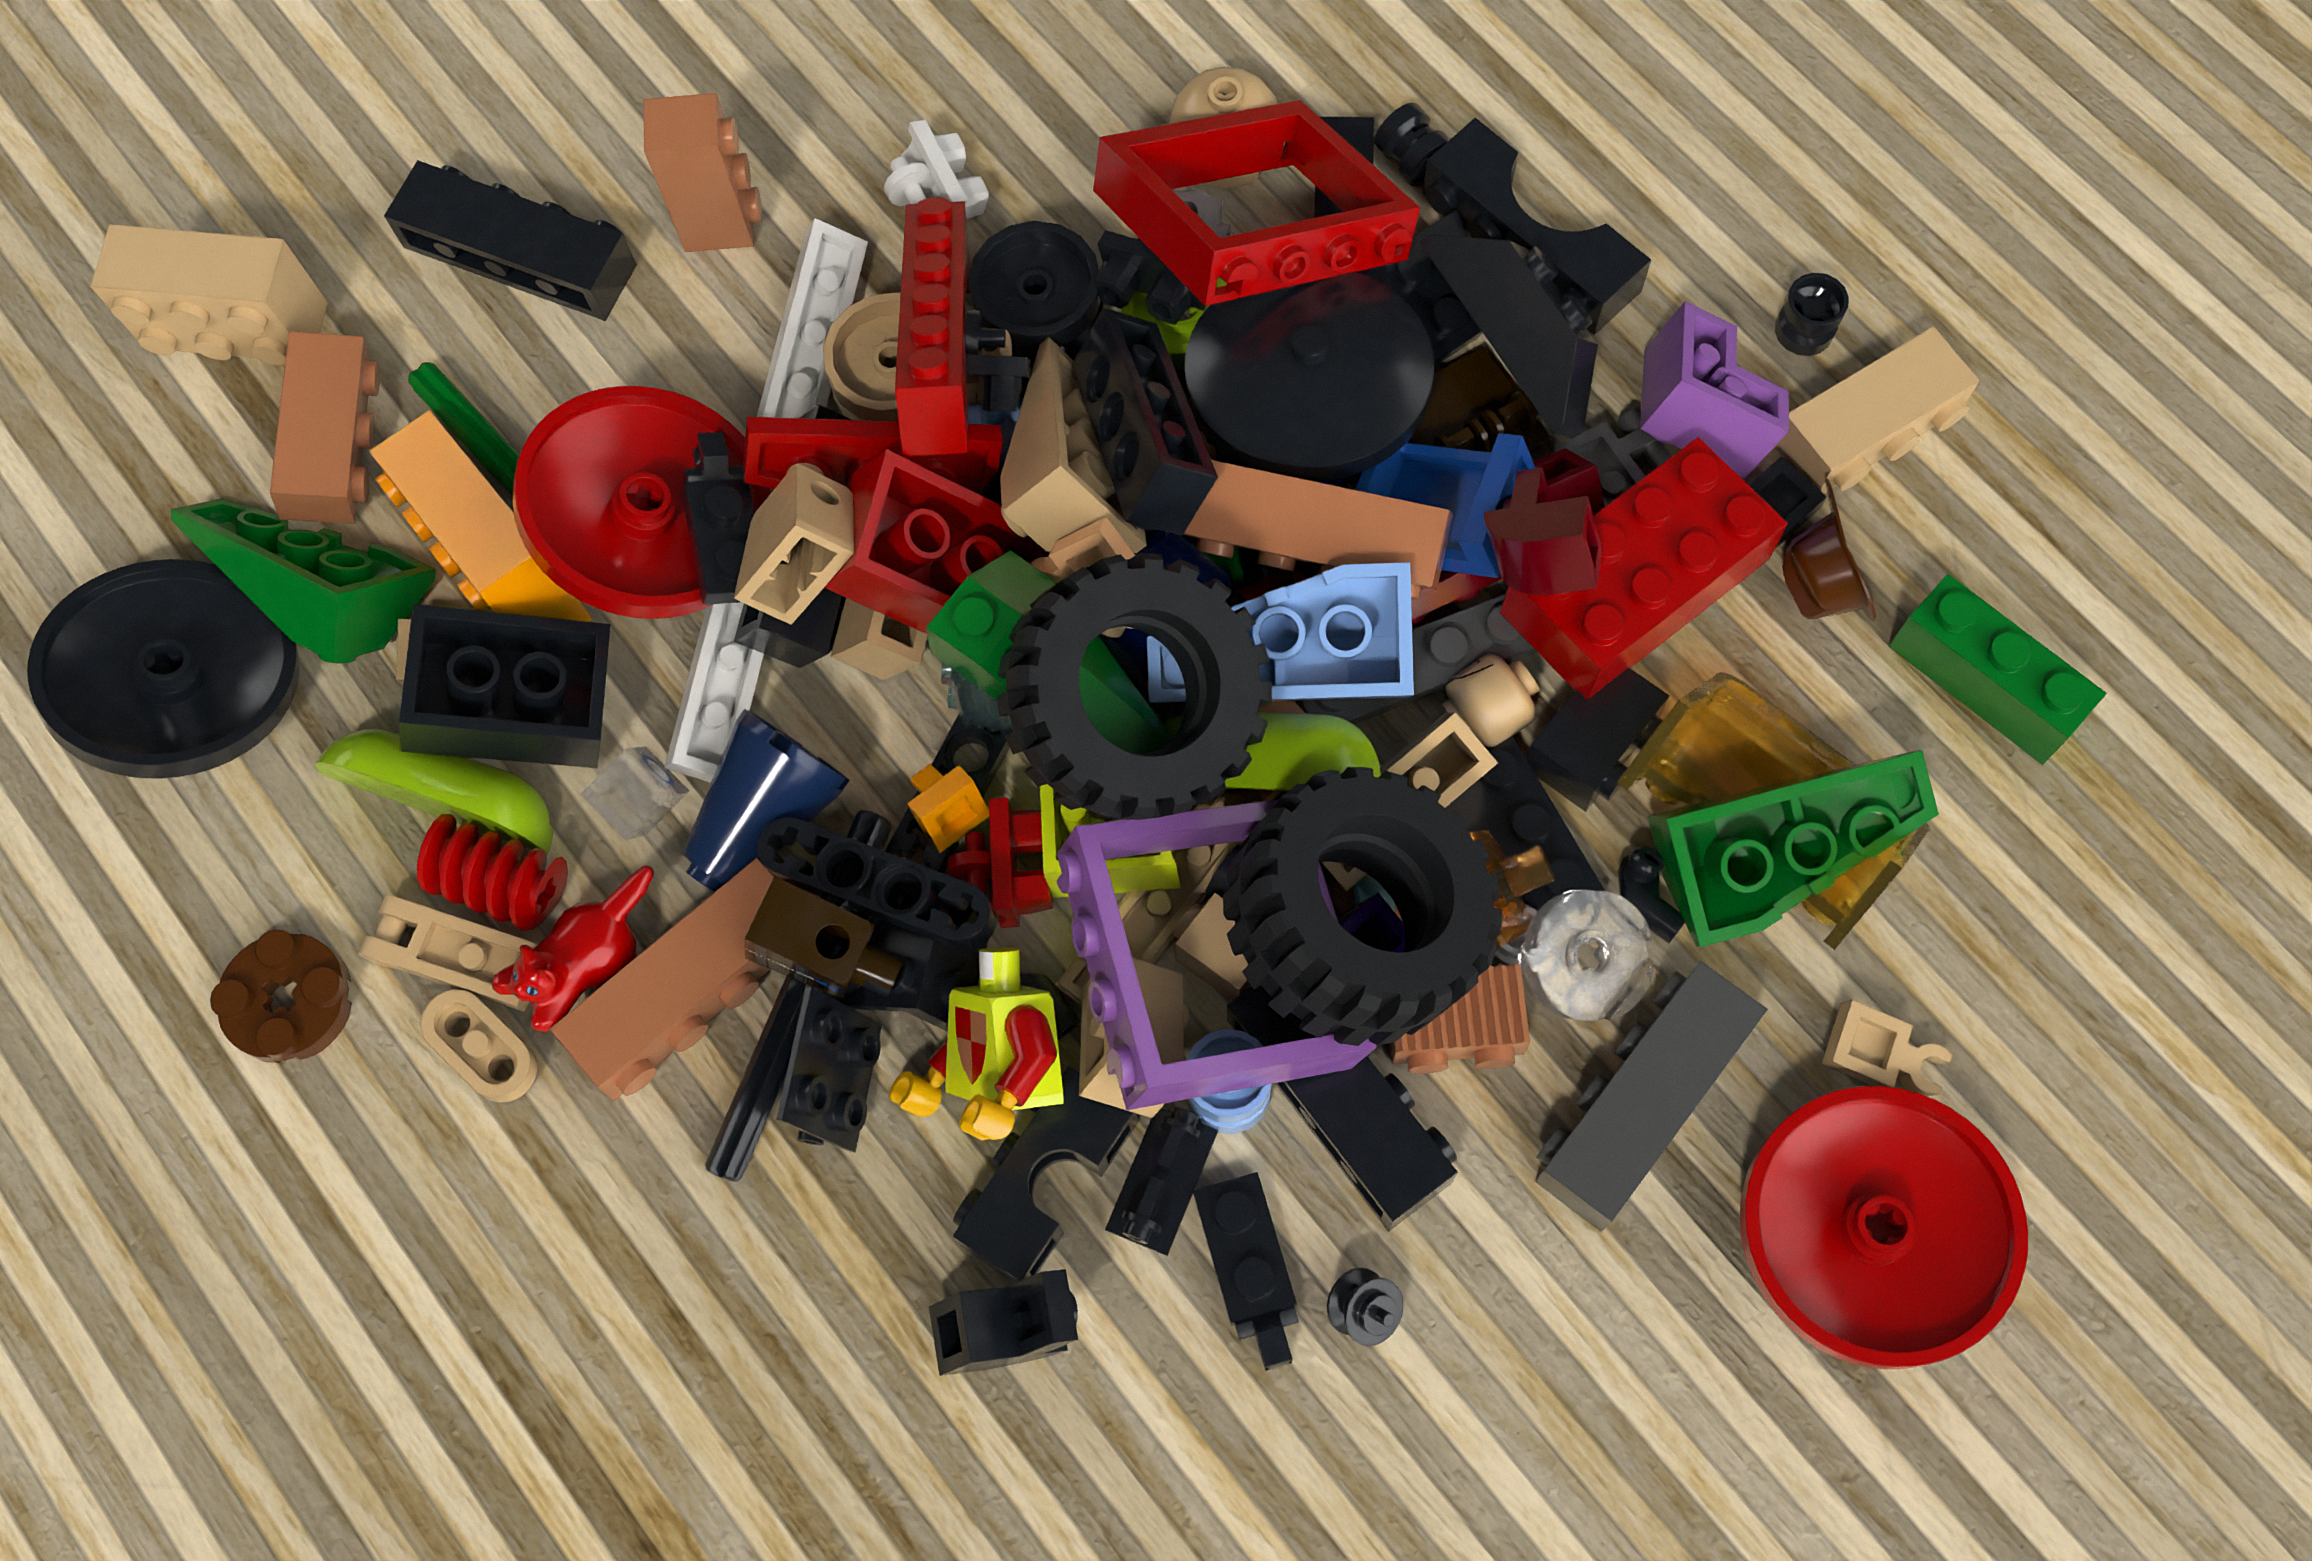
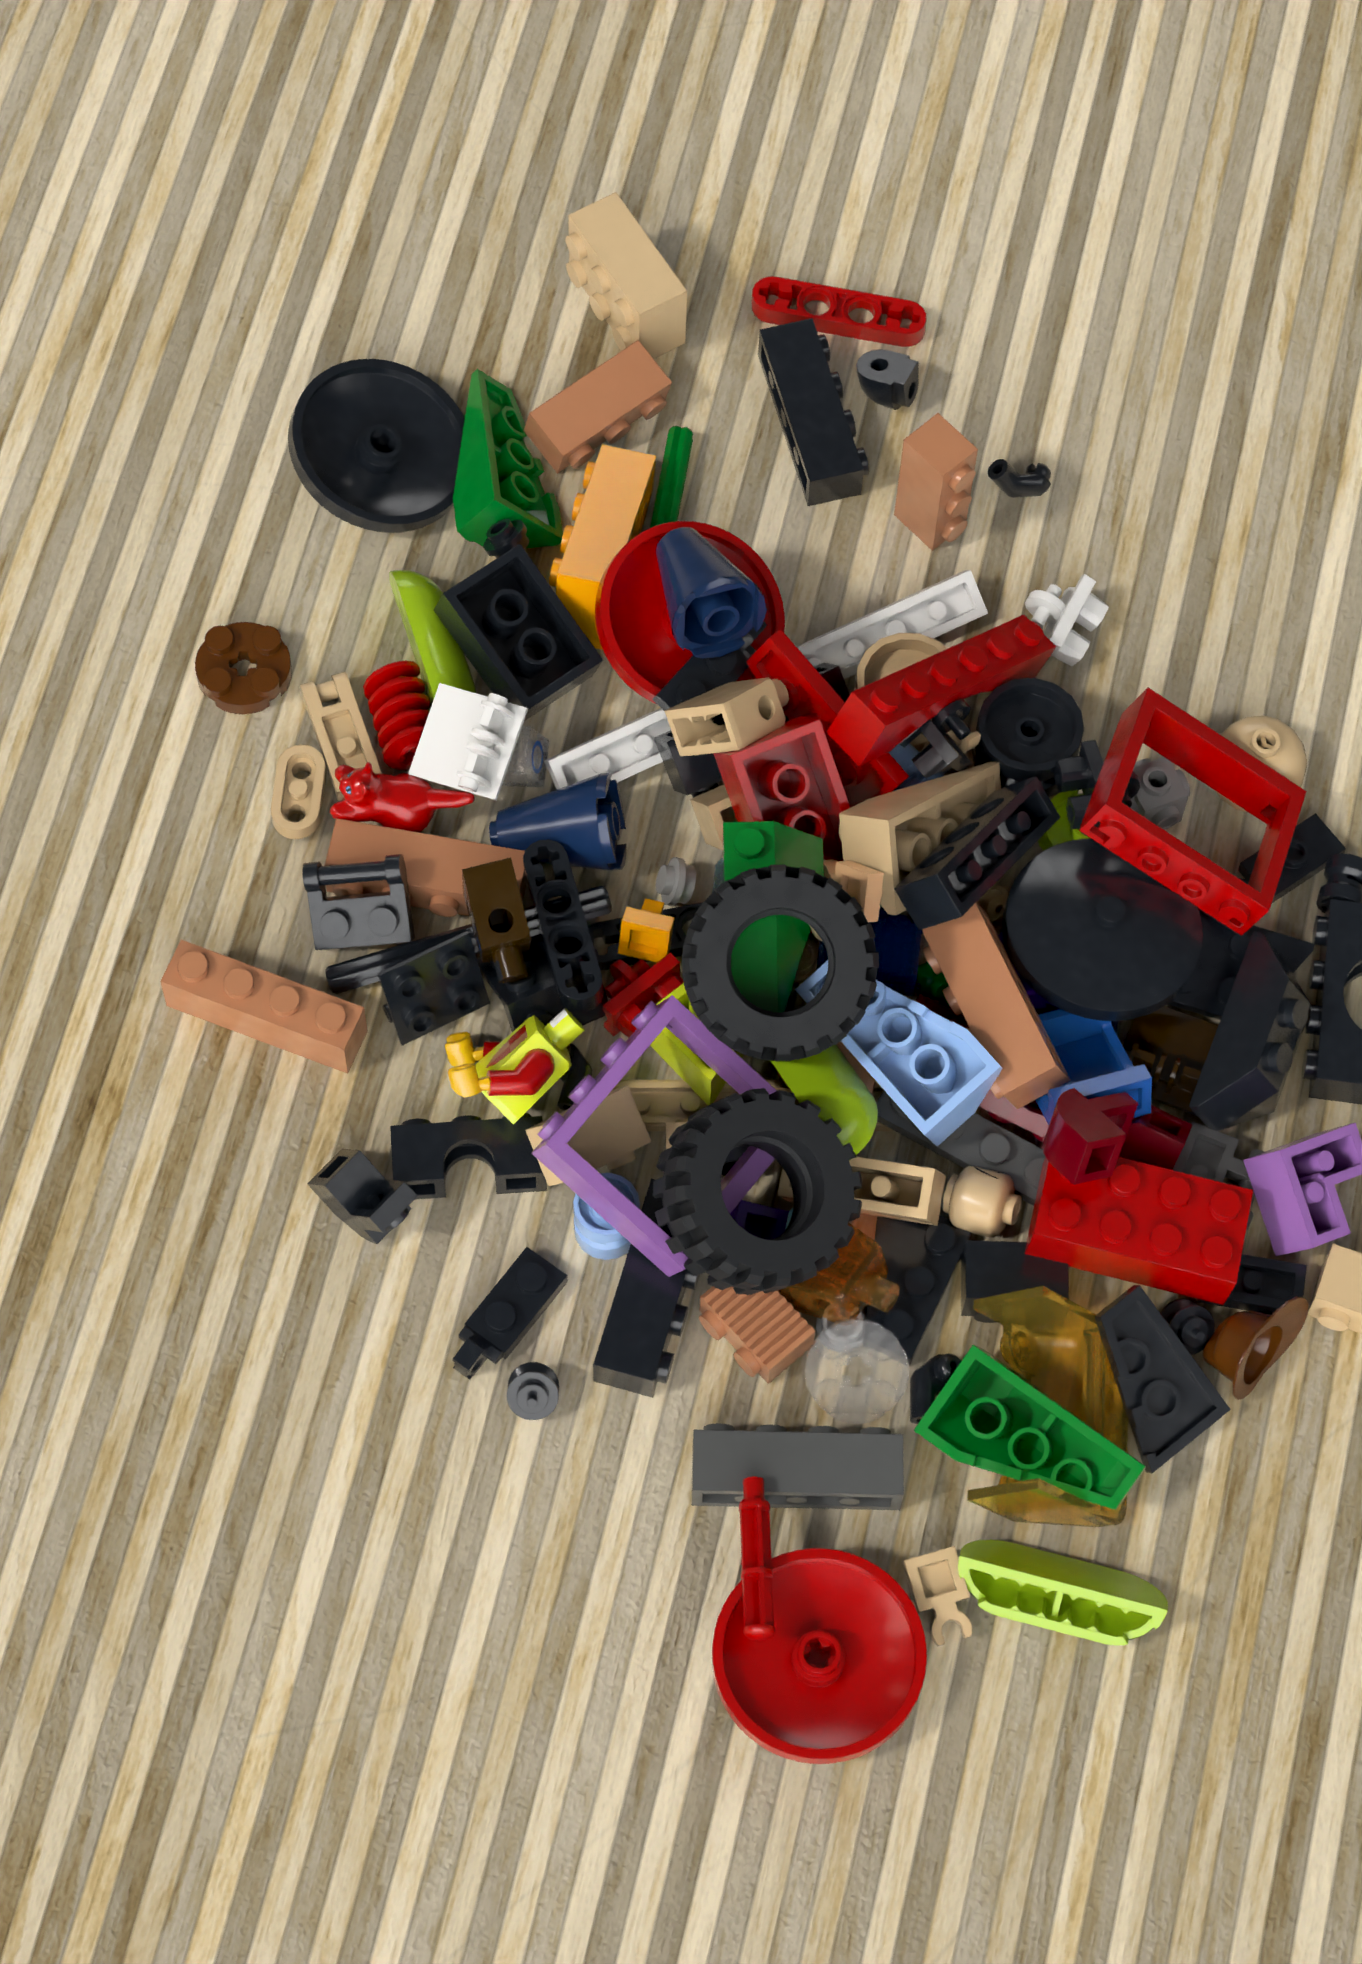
camera: 45 degrees right, 5 degrees down
(387, 619) = (505, 536): none -> black plate
(421, 133) = (840, 304): none -> red beam
(541, 145) = (888, 378): none -> black piece
(584, 824) = (468, 741): none -> white hinge
(644, 456) = (706, 595): none -> dark blue cone
(681, 1087) = (359, 917): none -> plate
(694, 1270) = (264, 1006): none -> nougat brick
(764, 110) = (1015, 485): none -> black arm
(907, 737) = (676, 882): none -> light grey plate
(1162, 1179) = (520, 1225): black hinge -> none
(1748, 1215) = (756, 1561): none -> red piece
(1764, 610) = (1190, 1323): none -> black wheel
(1808, 675) = (1157, 1378): none -> black wing
(1966, 930) = (1060, 1592): none -> lime brick
(1996, 669) = (1263, 1496): green brick -> none

